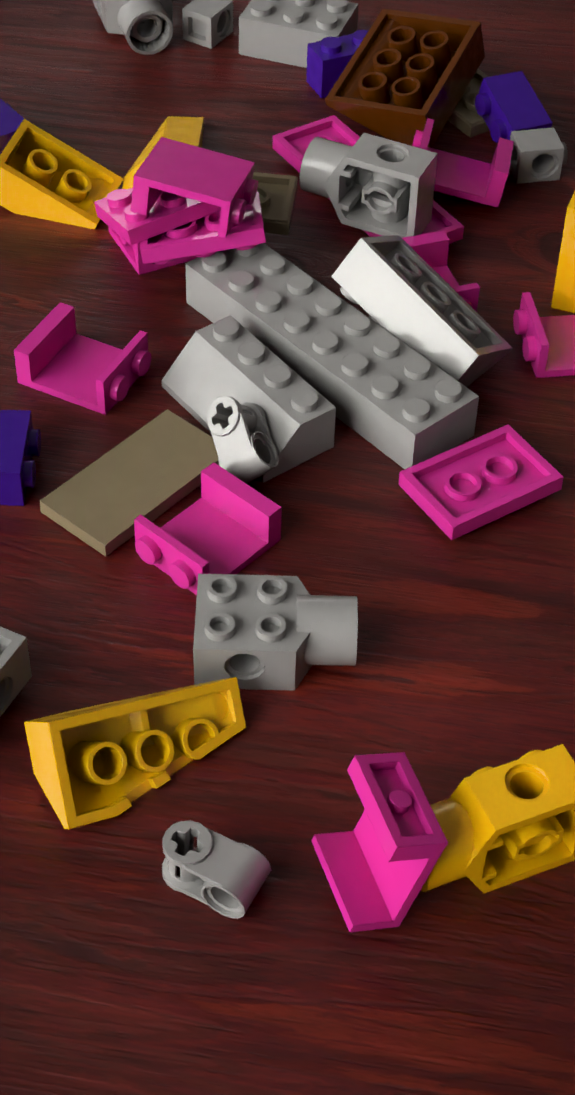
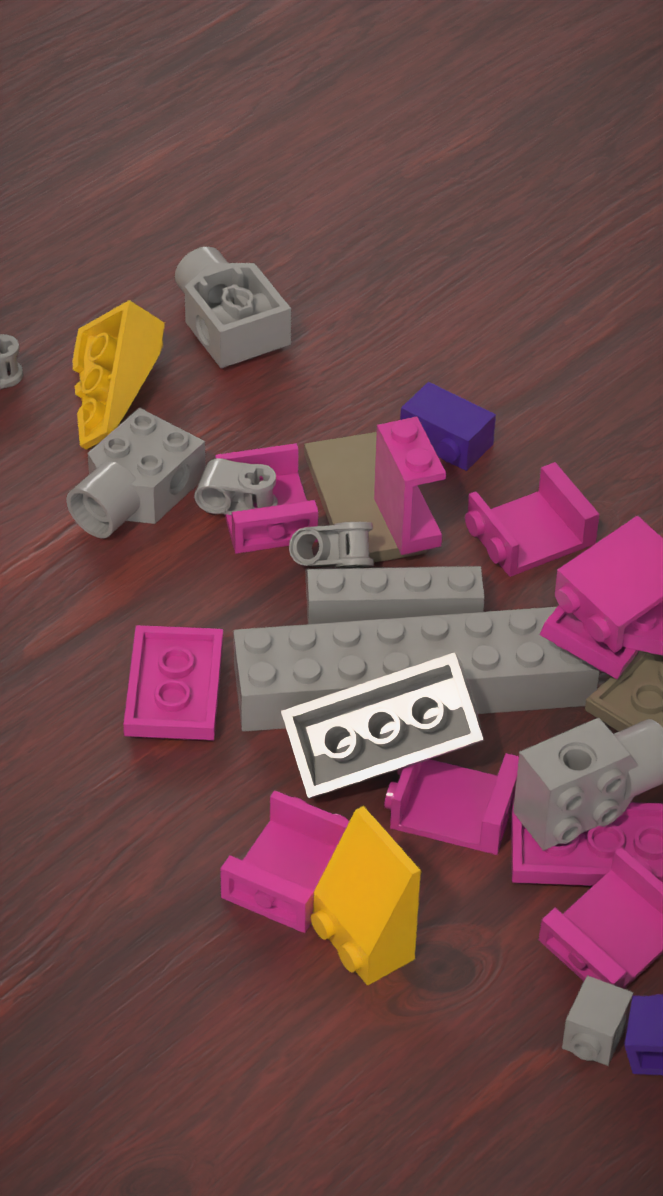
camera: 125 degrees right, 0 degrees up
(162, 388) = (401, 464): none -> dark pink panel
(223, 539) = (235, 487): none -> light grey piece

